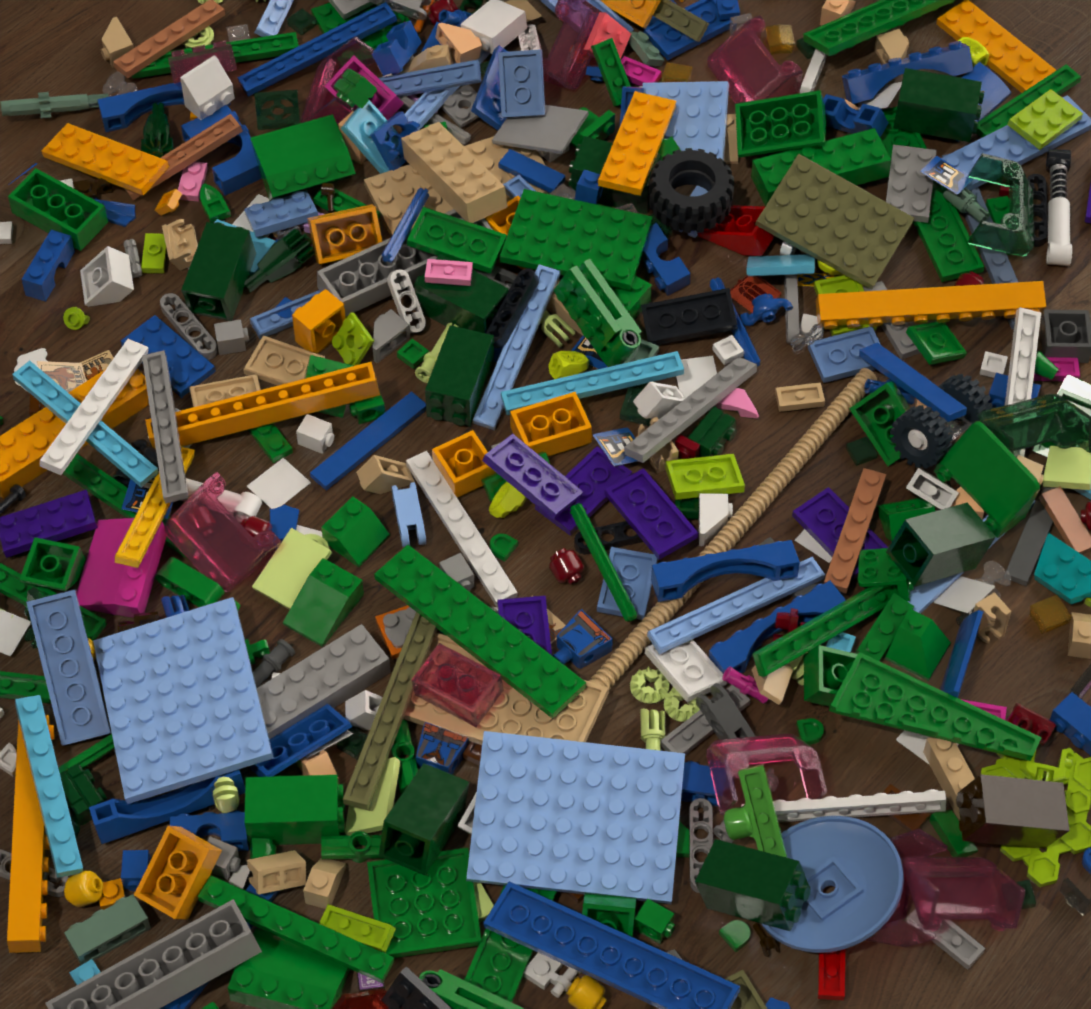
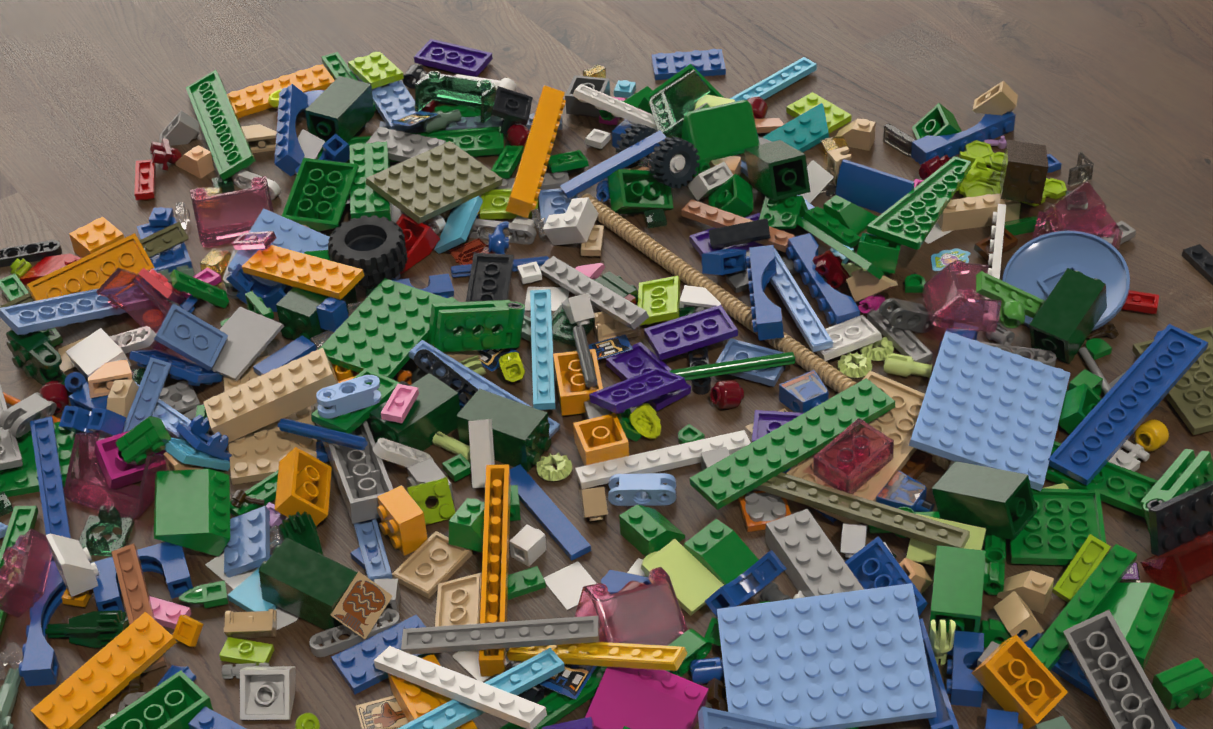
camera: 75 degrees left, 15 degrees down
(199, 315) = (361, 605): none -> sticker
(275, 618) = (747, 584): none -> blue arch
(416, 363) = (480, 450): none -> white tile
(428, 442) = (546, 470): none -> yellowish green gear
(445, 227) = (348, 396): none -> light blue piece
(570, 418) = (584, 356): none -> dark grey axle
(666, 88) = (254, 240): none -> clear pink plate
(693, 933) = (1094, 368): none -> light grey bar
(778, 523) = (724, 261): none -> blue brick
(807, 369) = (573, 225): none -> white brick
(828, 531) = (739, 234): none -> black tile
(869, 766) = (946, 257): none -> sticker
(896, 281) = (508, 161): none -> green plate
(995, 259) = (511, 107): none -> black bracket

